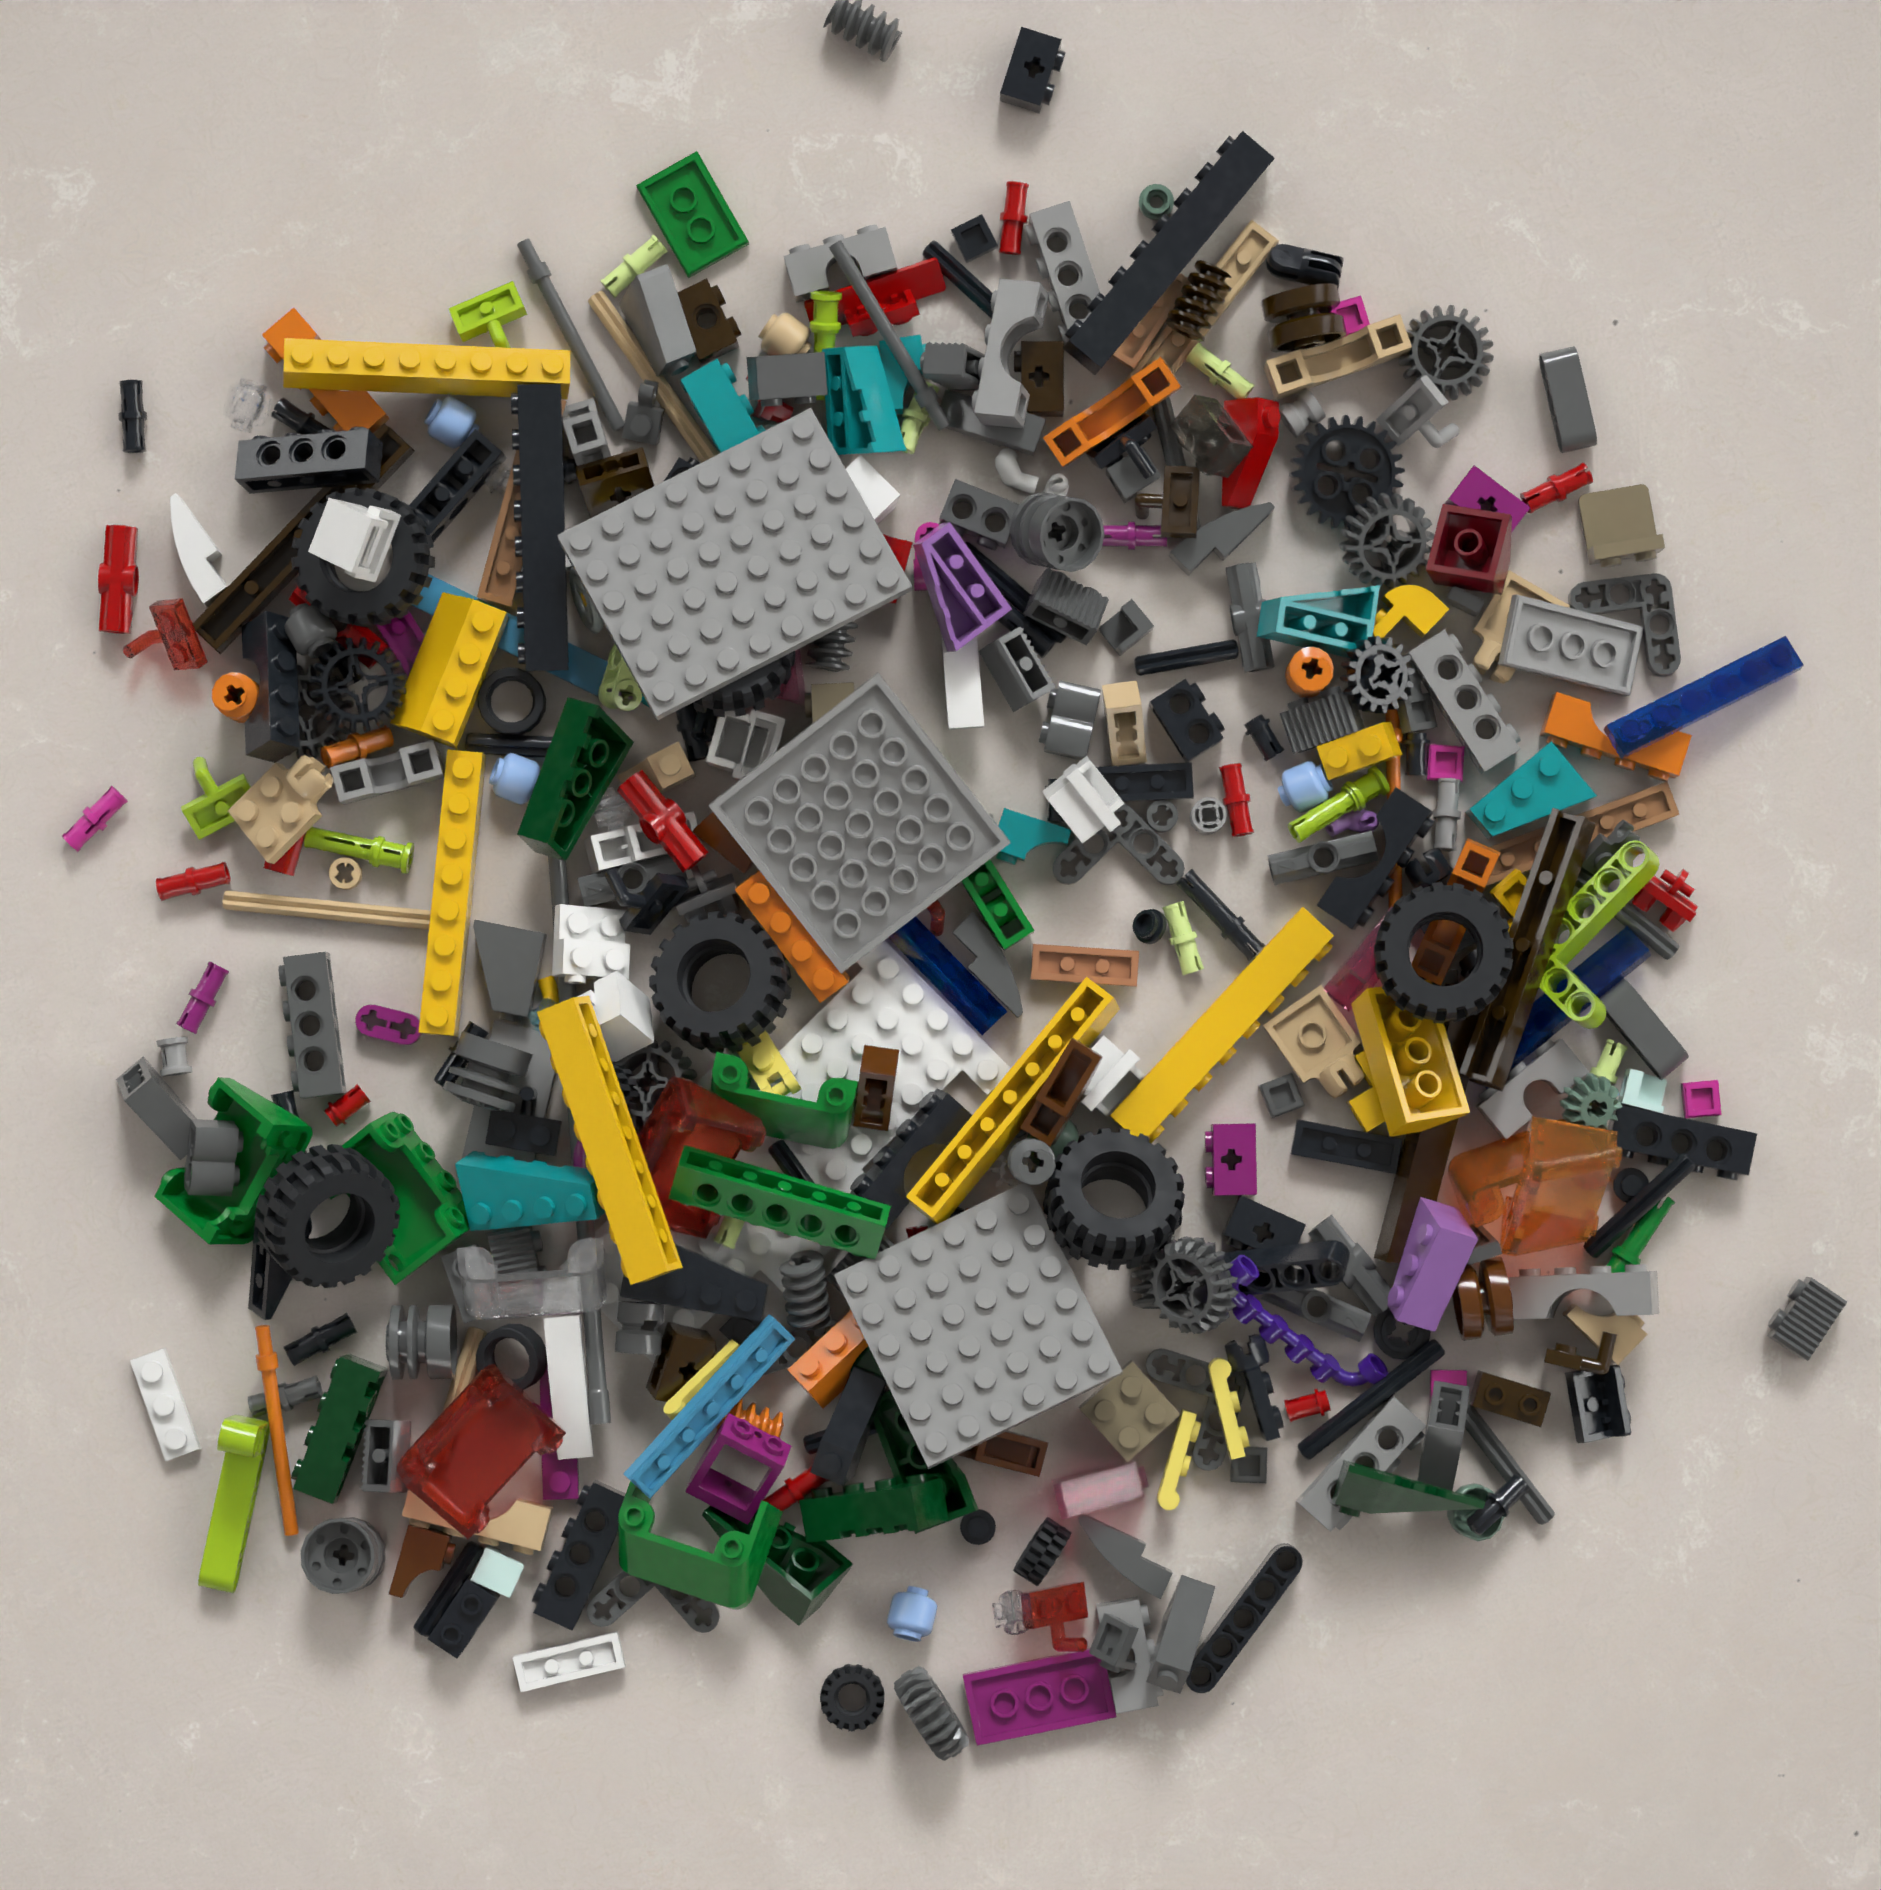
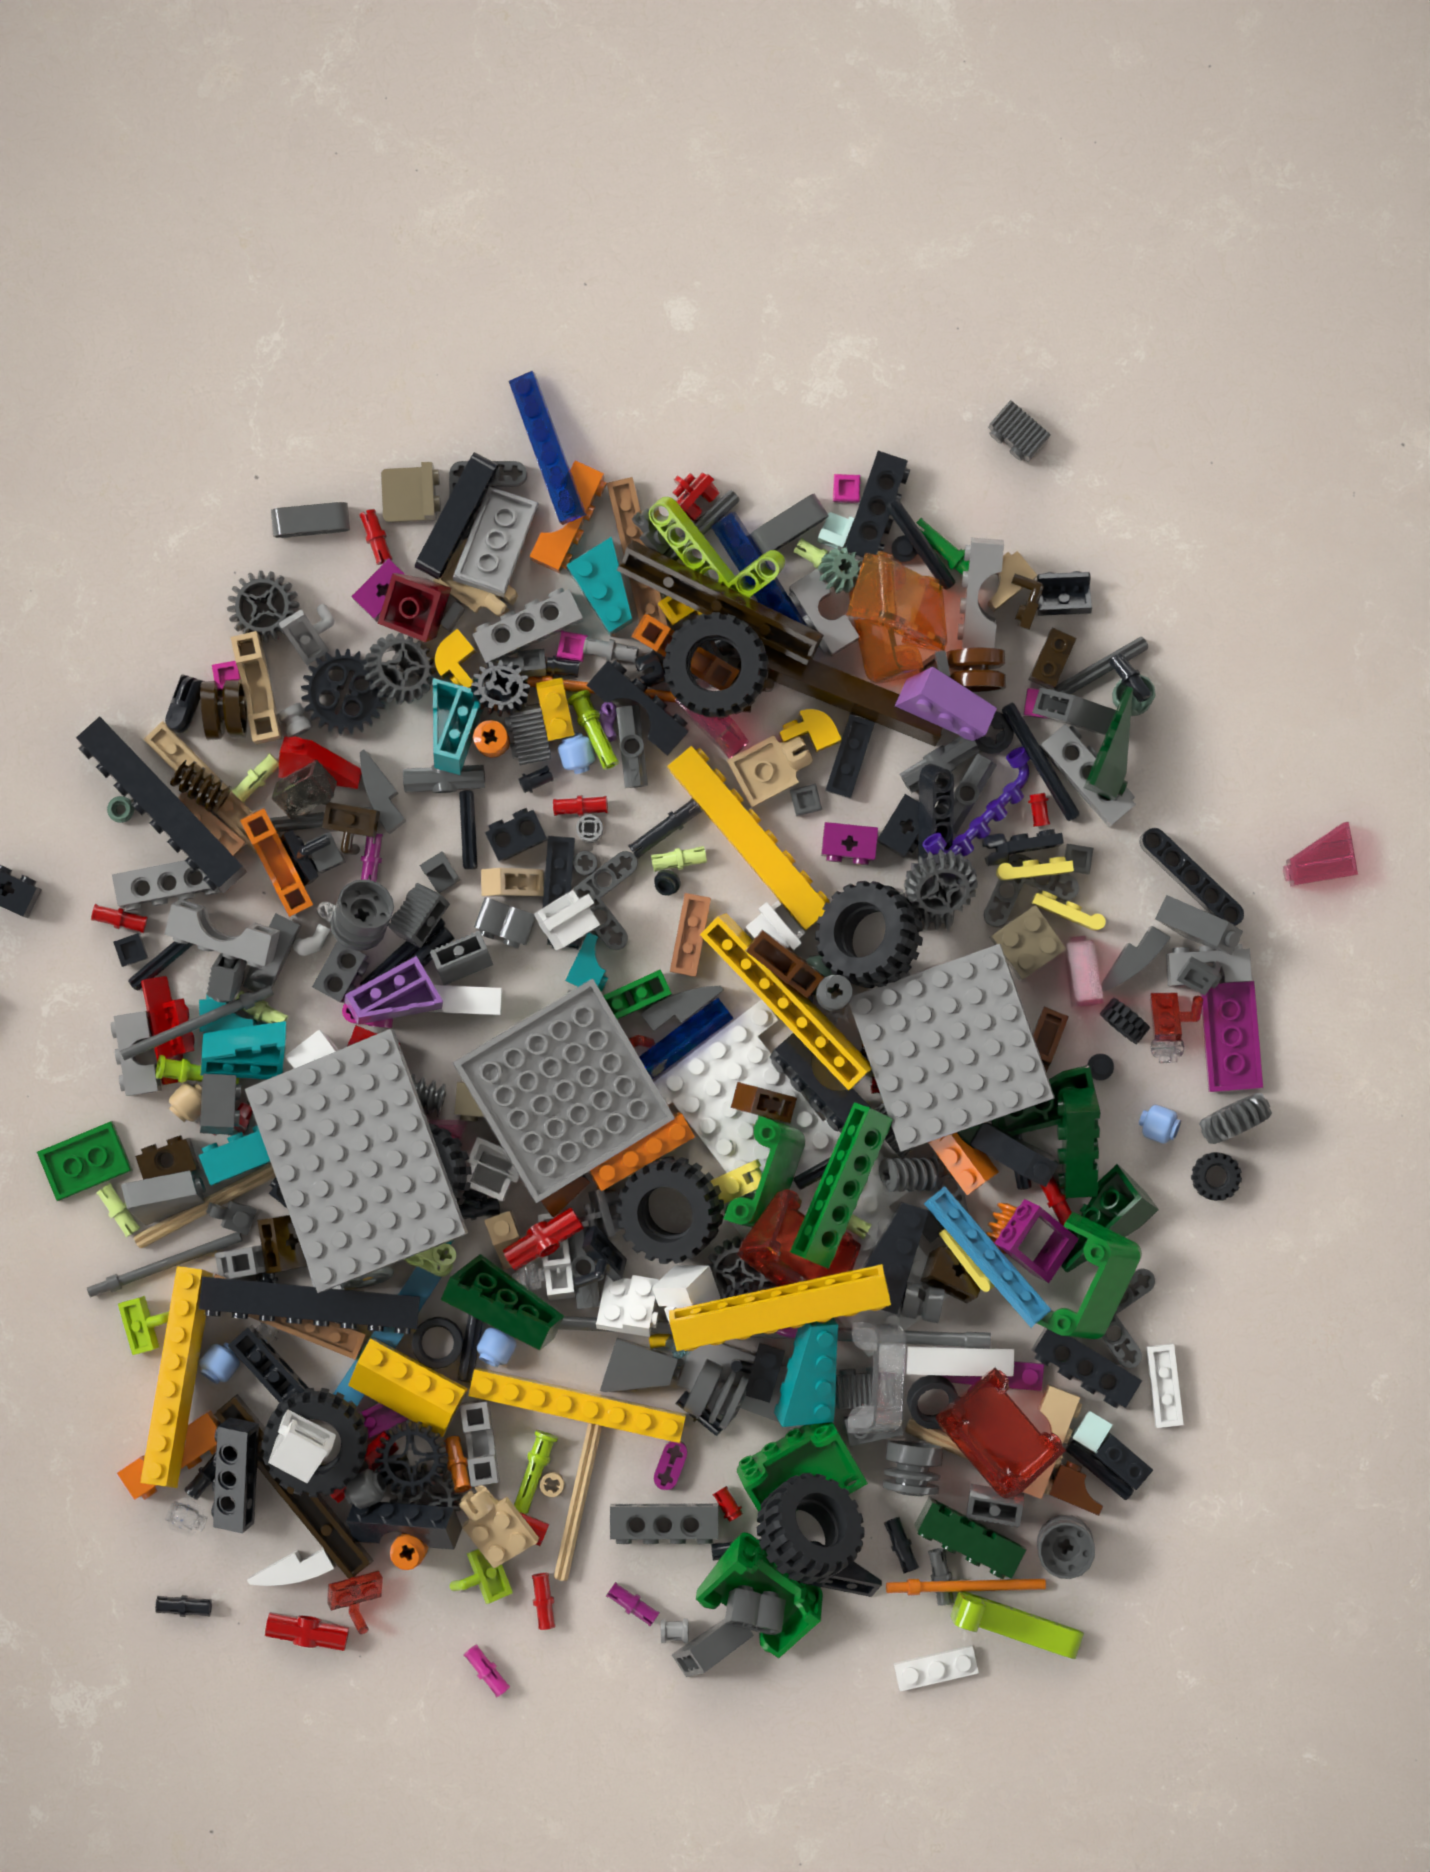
camera: 85 degrees left, 0 degrees up
(1048, 358) = (230, 904): dark brown brick -> none
(1289, 1791) = (1323, 859): none -> clear pink slope
(1408, 1065) = (796, 701): yellow slope -> none
(1597, 589) = (456, 515): none -> black beam

